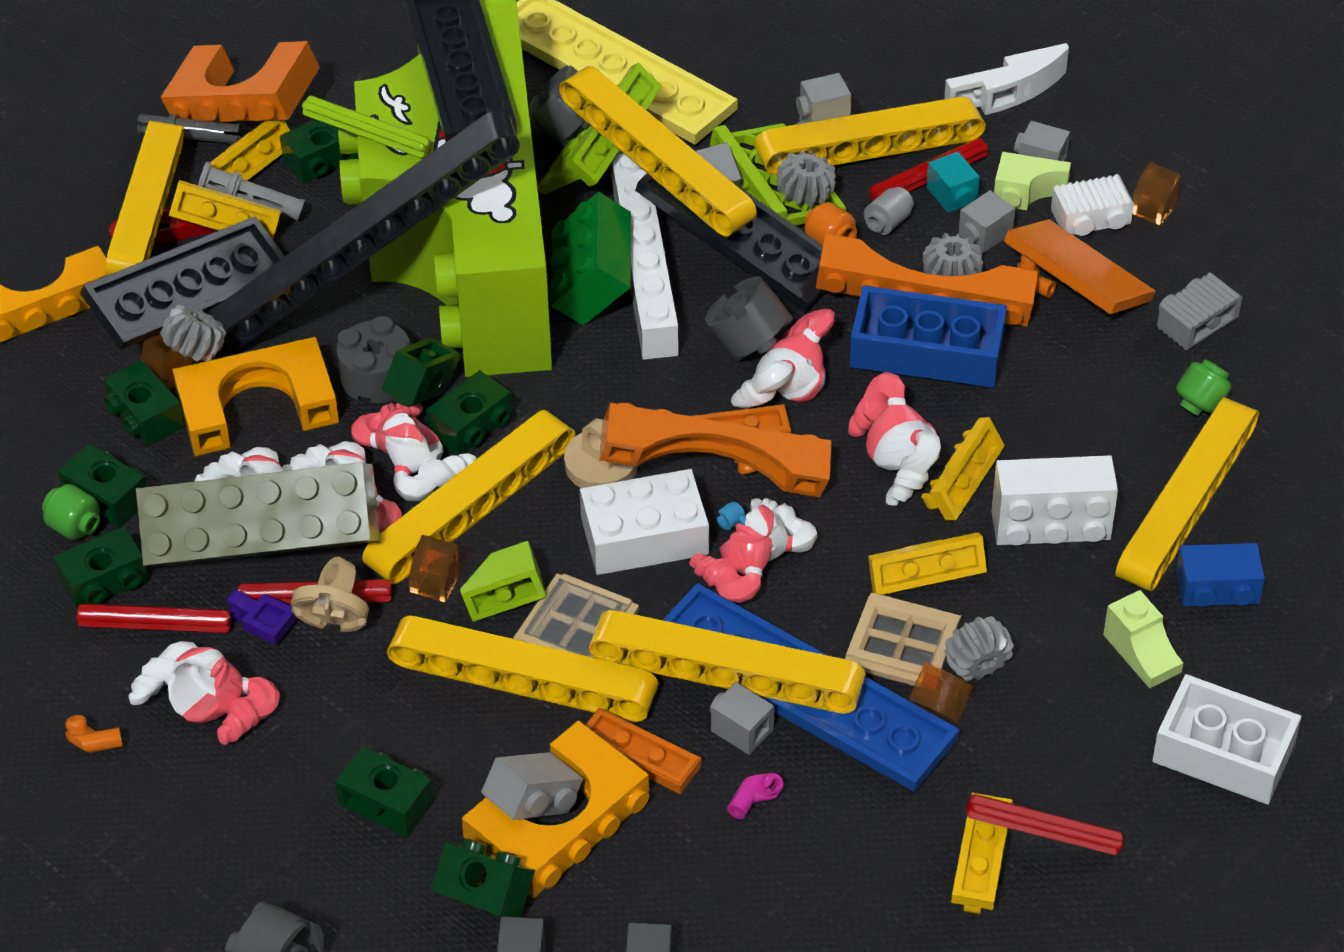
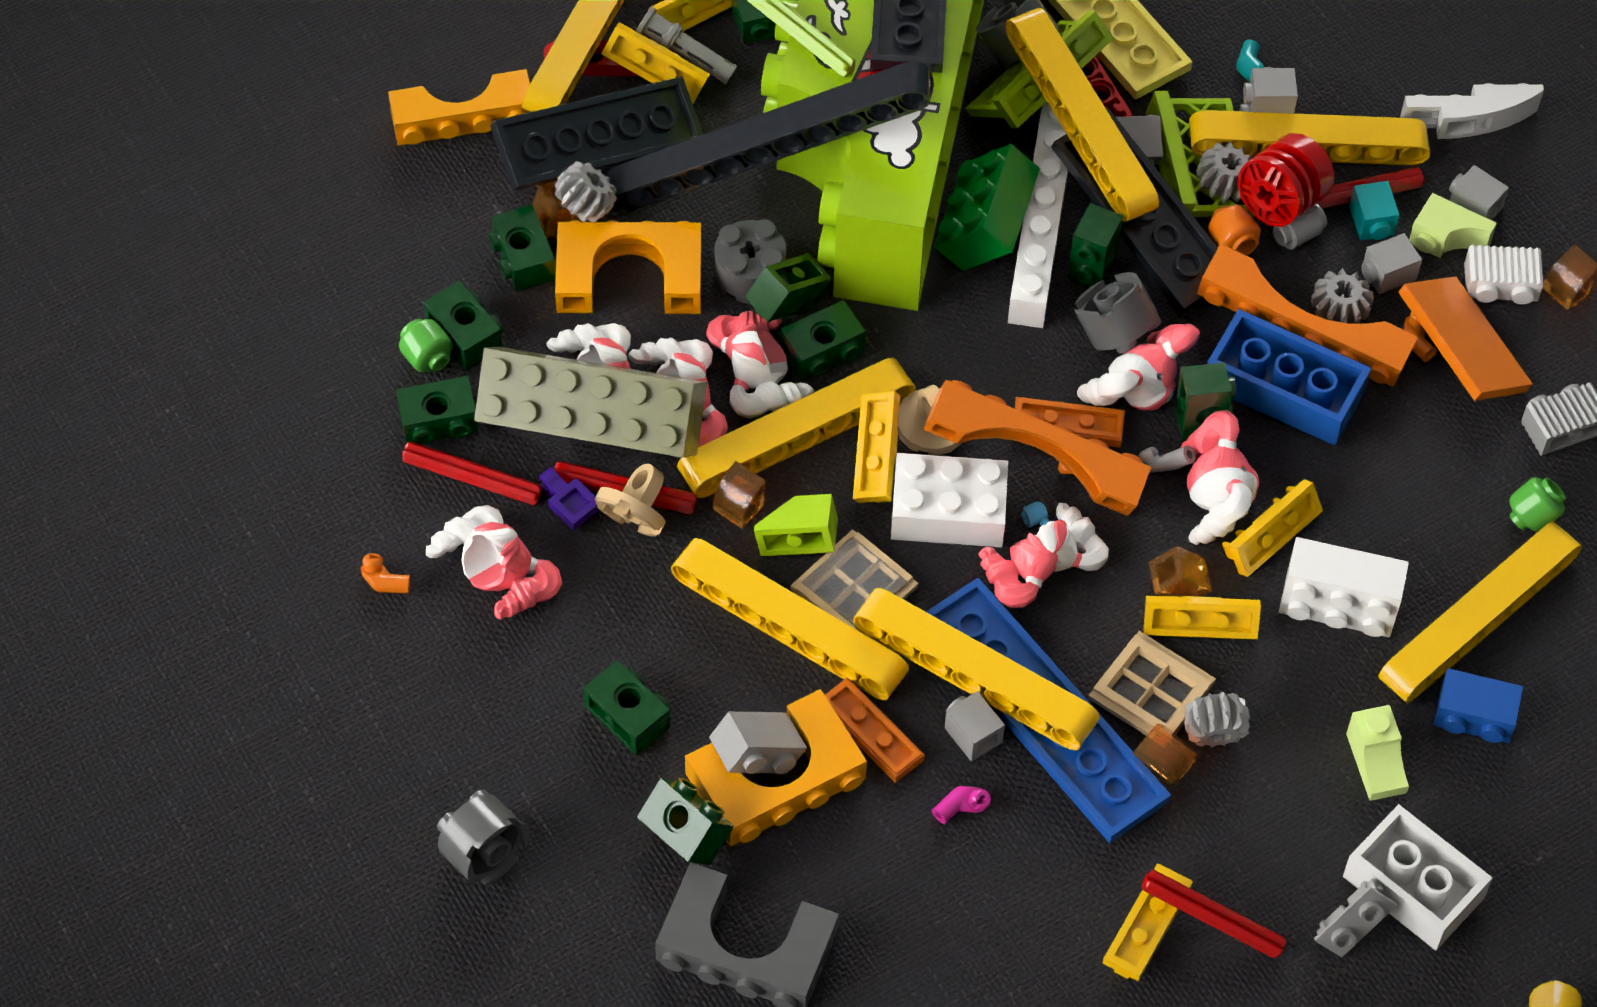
camera: 15 degrees right, 10 degrees up
(557, 491) = (876, 447): none -> yellow plate
(705, 266) = (1095, 245): none -> dark green brick
(787, 89) = (1247, 59): none -> teal arm
(846, 435) = (1168, 461): none -> light grey arm
(853, 366) = (1201, 393): none -> dark green brick
(866, 166) = (1286, 179): none -> red wheel
(890, 530) = (1179, 574): none -> clear orange brick
(1177, 803) = (1350, 924): none -> light grey hinge

